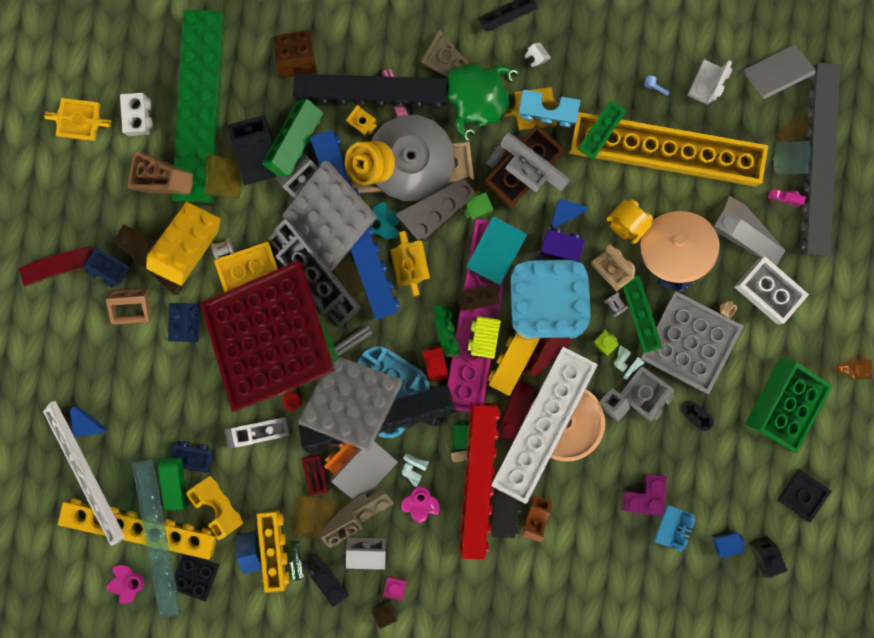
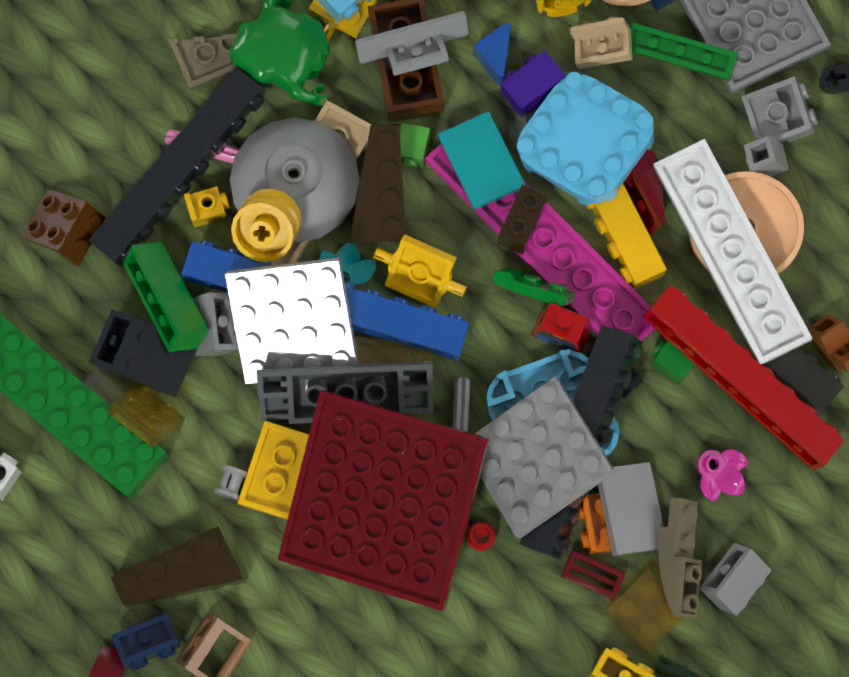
camera: 55 degrees left, 10 degrees down
(157, 176) = (85, 491): medium nougat wedge -> none
(183, 243) = (192, 518): yellow brick -> none
(183, 322) = (284, 598): dark blue bracket -> none
(256, 432) = (487, 607): light grey slope -> none
(326, 581) = (735, 656): black hinge -> none
(384, 613) = (826, 611): dark brown brick -> none
(394, 588) = (802, 579): dark pink plate -> none
(407, 469) = (681, 457): light aqua piece -> none
(459, 455) = (694, 383): tan piece -> none
(485, 337) = (575, 246): neon yellow brick -> none
(496, 157) = (368, 83): light grey pin -> none
(515, 411) = (691, 277): dark red slope -> none
(605, 342) = (683, 117): lime brick -> none
(616, 298) = (640, 71): light grey bush -> none
(619, 363) = (713, 110): light aqua piece -> none

